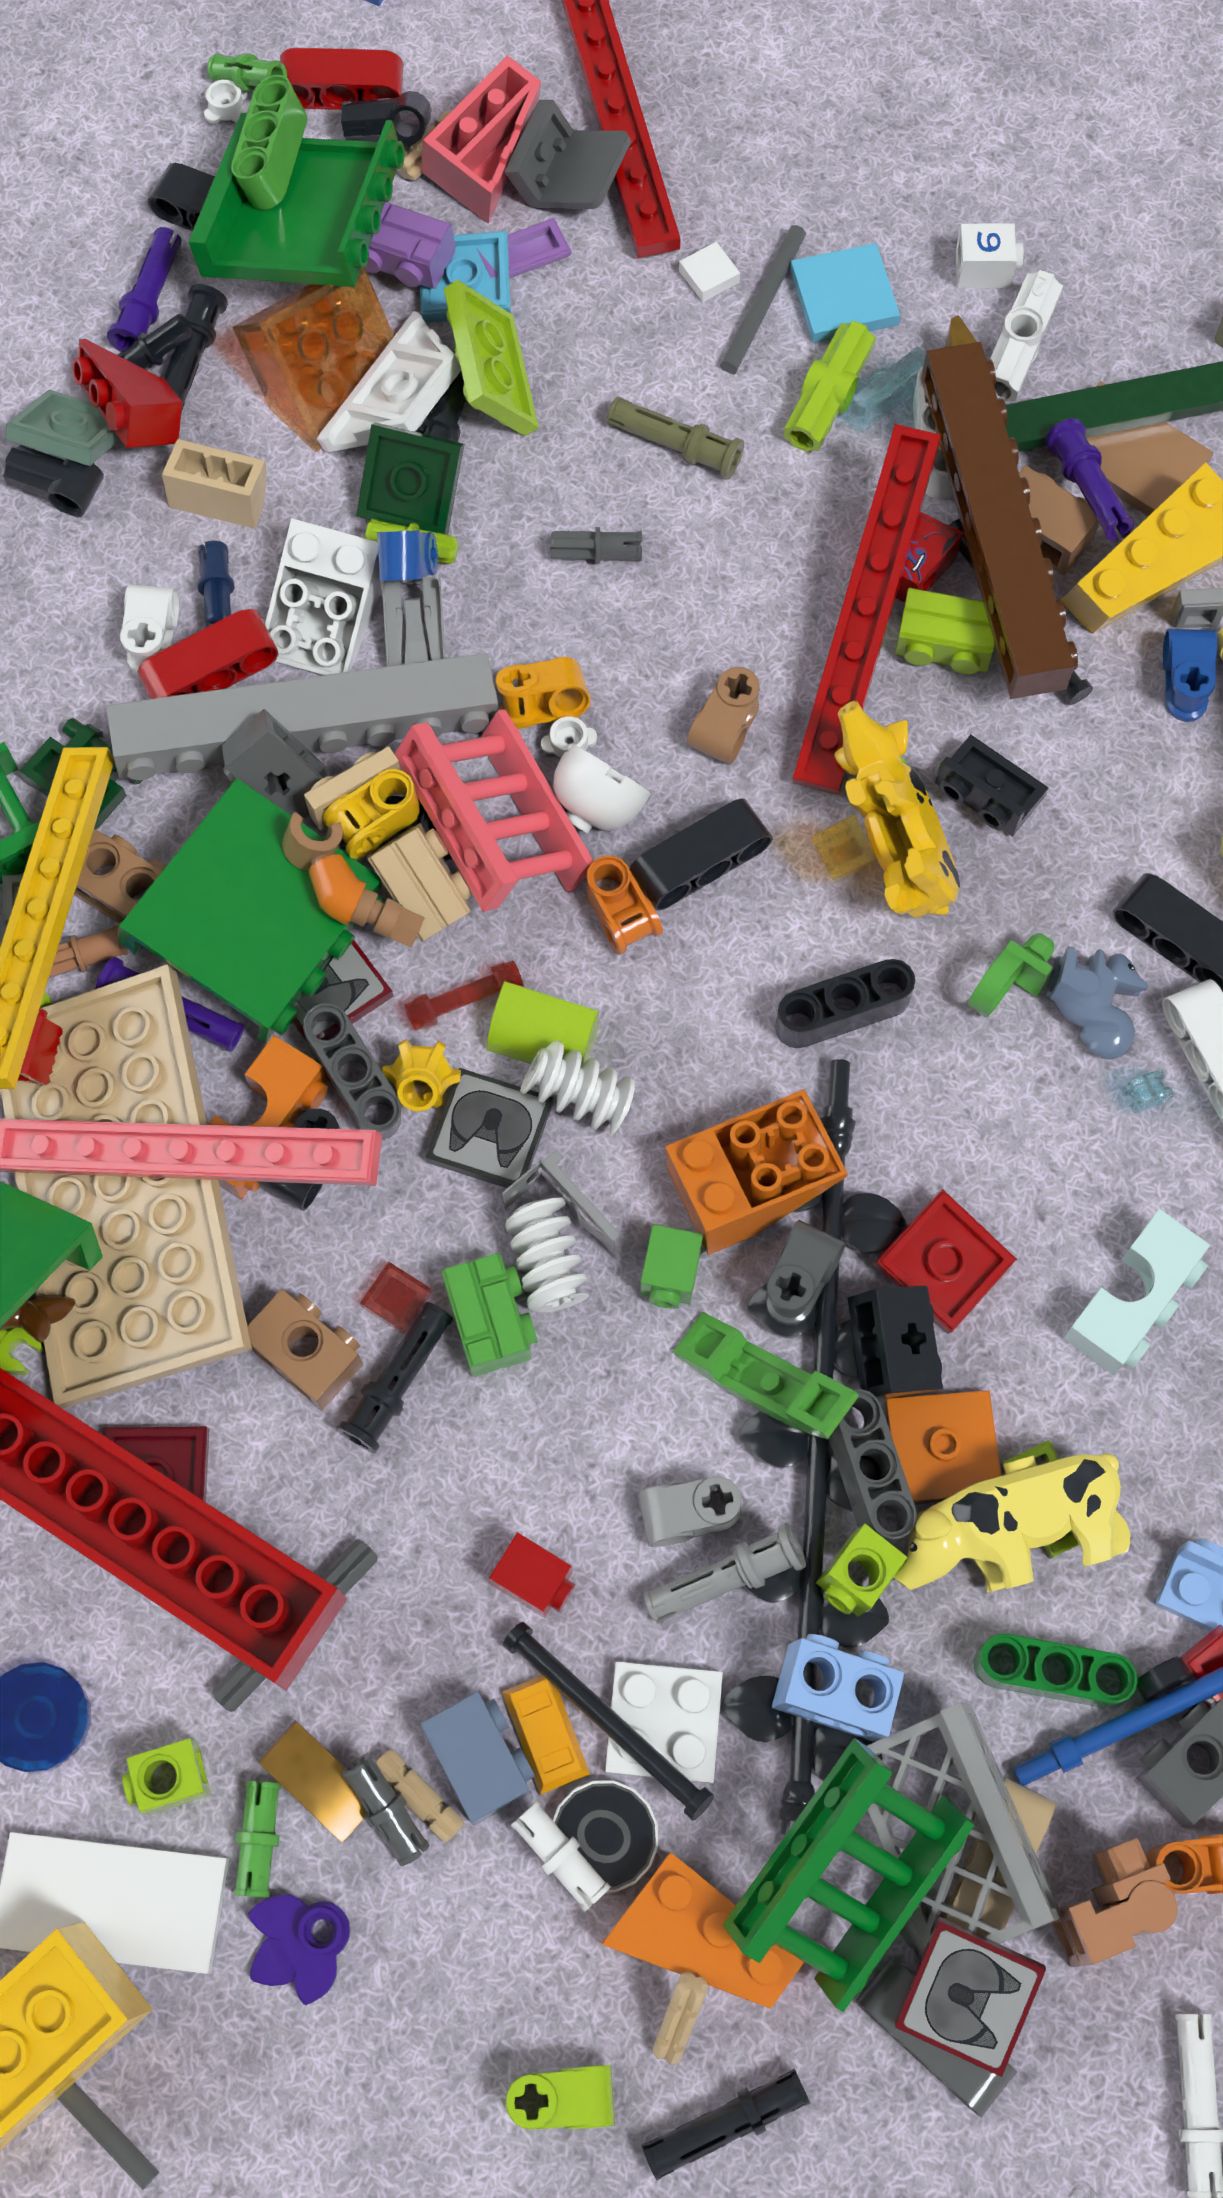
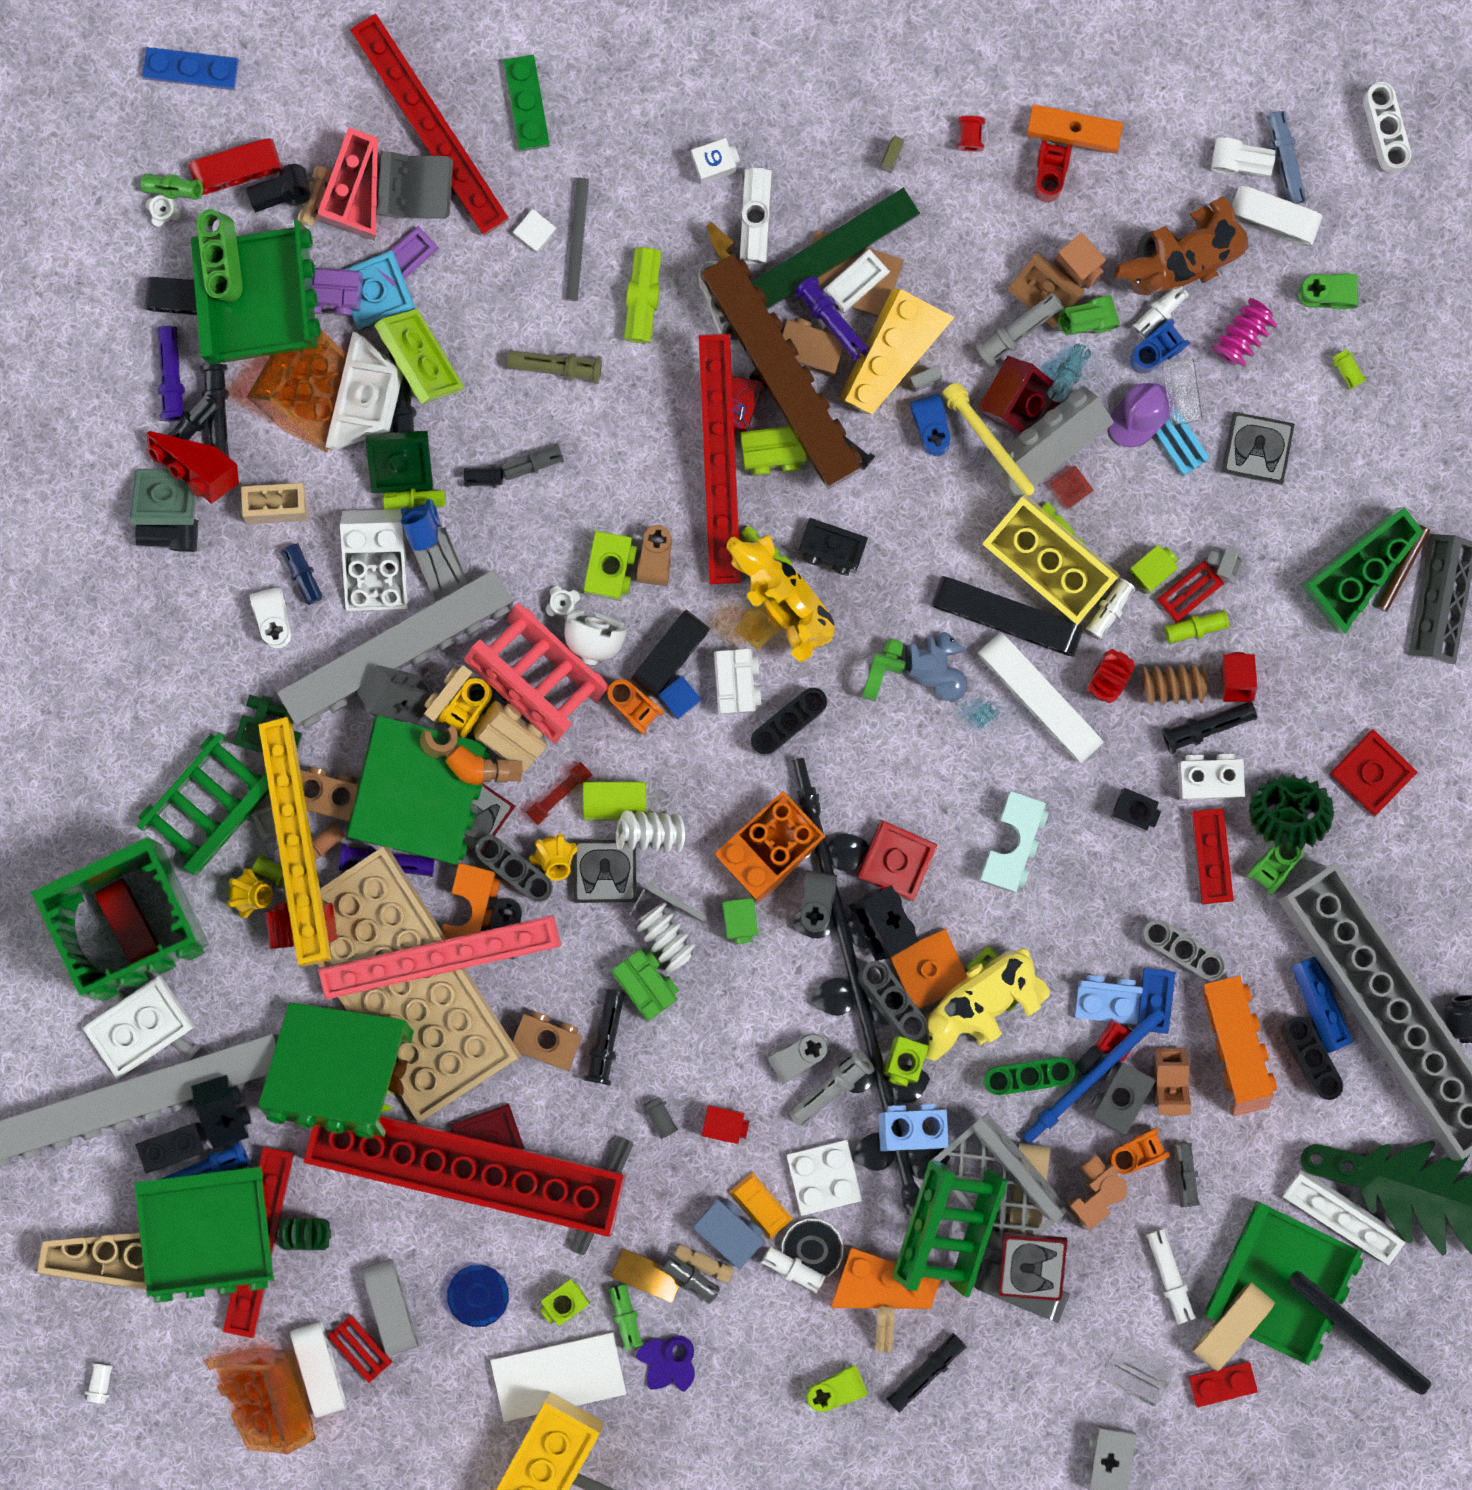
camera: 20 degrees left, 15 degrees up
(211, 658) = (320, 630): red beam -> none
(395, 1297) = (587, 991): clear red tile -> none
(435, 1530) = (660, 1117): none -> dark grey pin
(522, 542) = (483, 476): none -> black pin
(544, 690) = (538, 578): light orange piece -> none
(657, 683) = (607, 547): none -> lime brick
(693, 921) = (679, 697): none -> blue tile
(693, 1798) = (792, 1188): black bar -> none
(755, 124) = (526, 103): none -> green plate
(764, 1380) = (815, 968): bright green slope -> none
(783, 923) = (735, 681): none -> white brick
(843, 289) = (629, 216): medium azure tile -> none
(885, 391) = (680, 285): clear light blue plate -> none
(1143, 453) = (856, 281): none -> white tile

